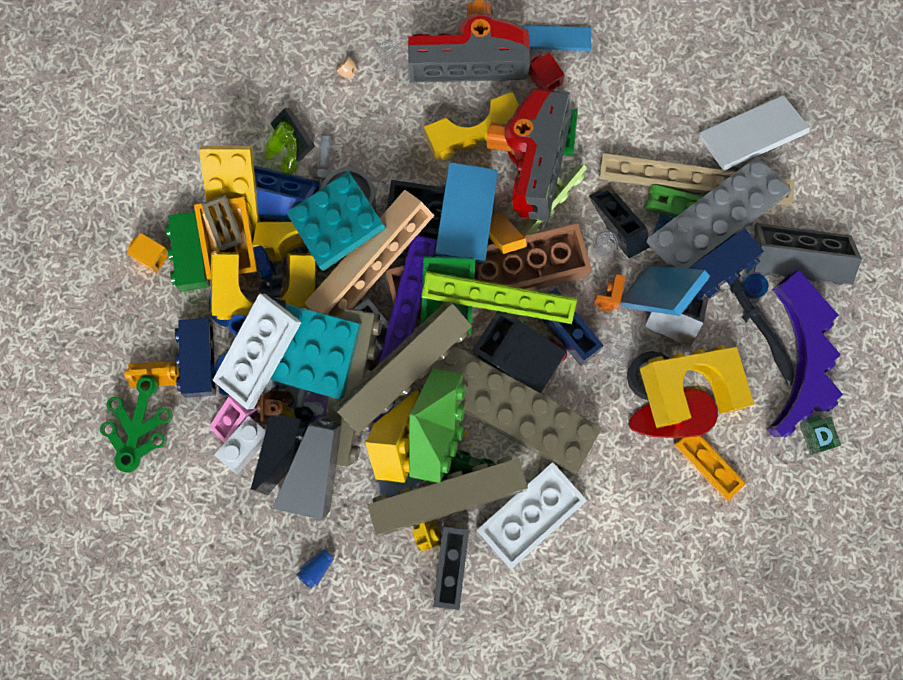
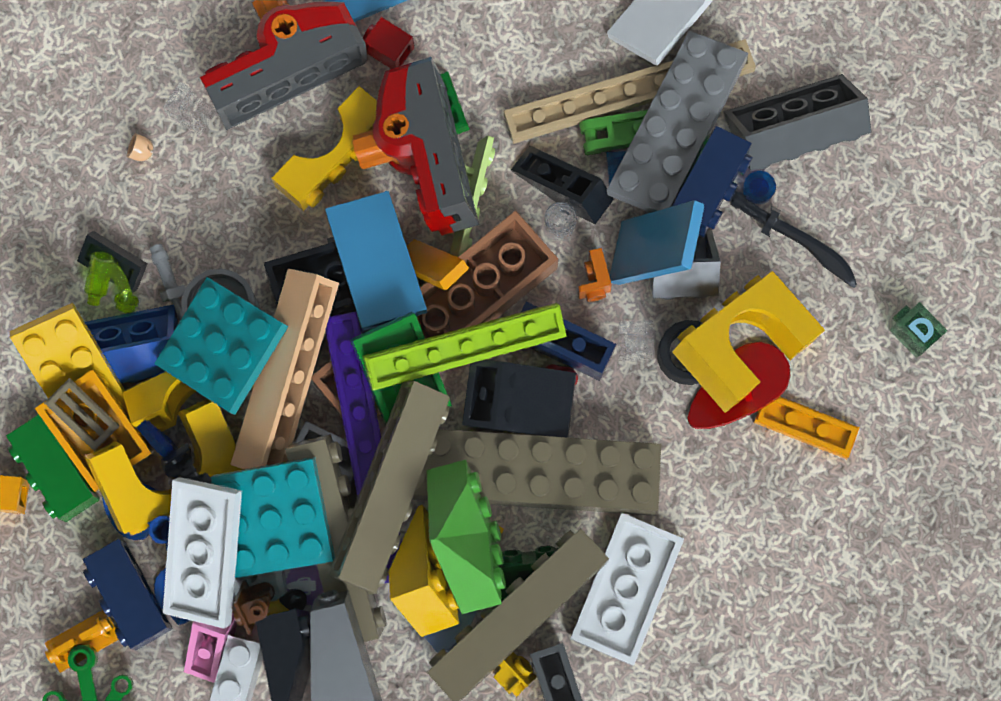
camera: 25 degrees left, 0 degrees up
(815, 354) = (867, 236): dark purple arch -> none

